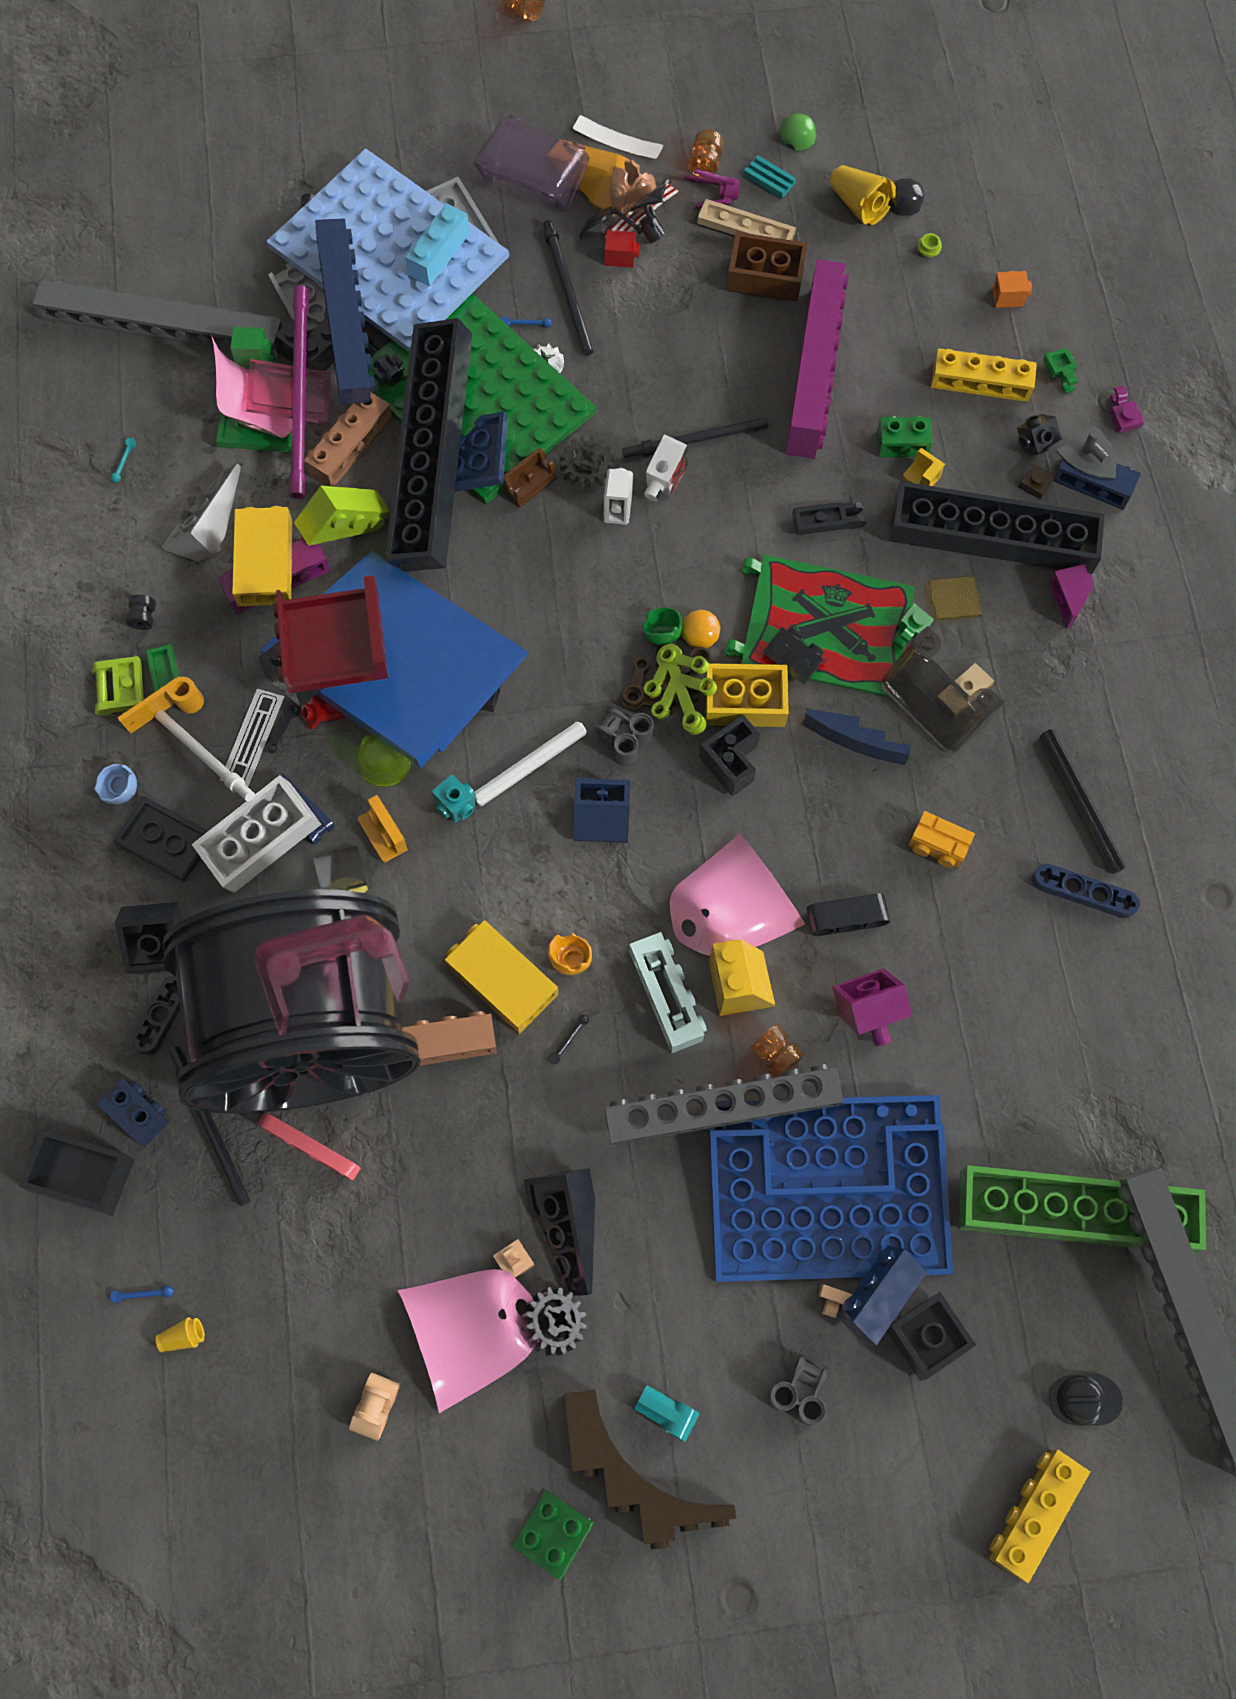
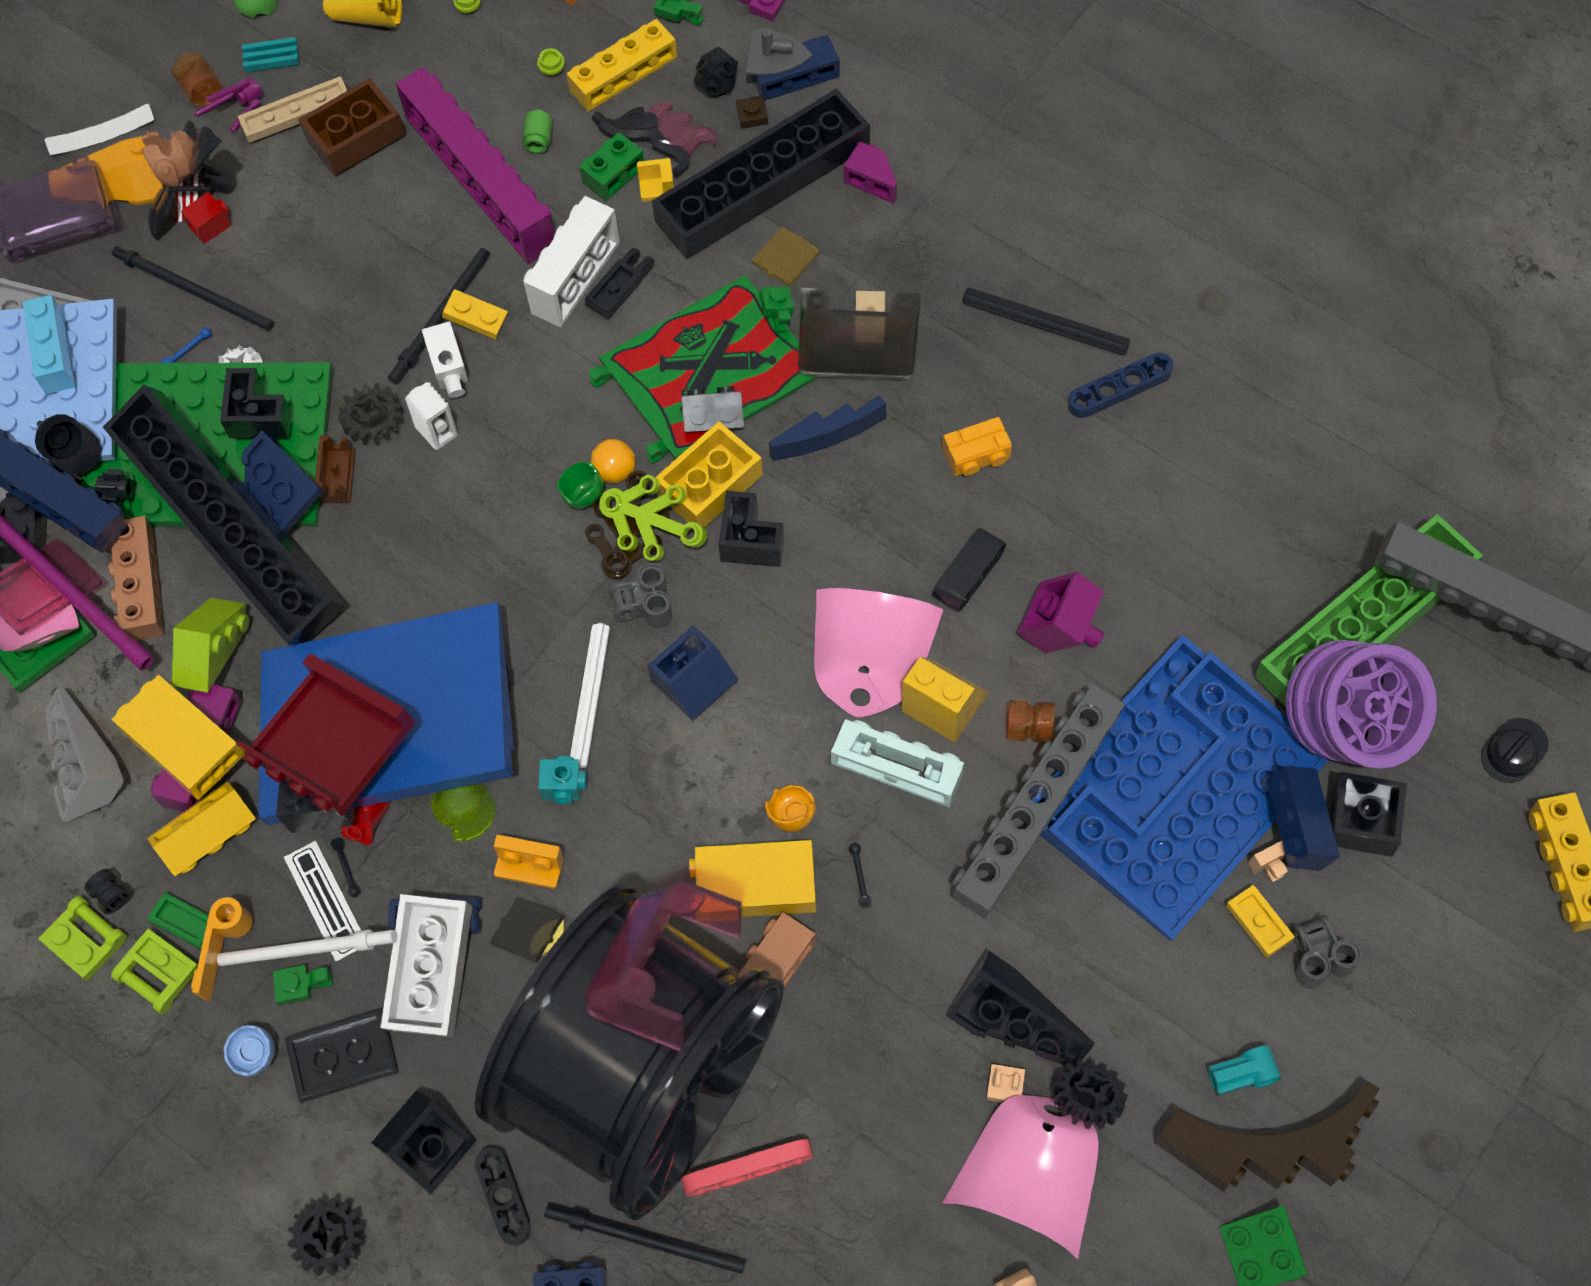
camera: 40 degrees left, 5 degrees down
(47, 923) = (311, 1238): none -> black gear
(93, 627) = (74, 946): none -> lime plate
(184, 771) = (296, 983): none -> green plate
(225, 626) = (201, 829): none -> yellow brick
(385, 317) = (67, 444): none -> black piece
(512, 389) = (249, 410): none -> black brick
(716, 456) = (474, 314): none -> yellow plate
(784, 1330) = (1260, 921): none -> yellow plate
(809, 475) = (571, 261): none -> white brick
(881, 371) = (537, 131): none -> bright green brick
(940, 333) = (551, 62): none -> lime plate
(965, 445) = (664, 130): none -> piece
(1018, 1292) = (1335, 706): none -> medium lavender wheel

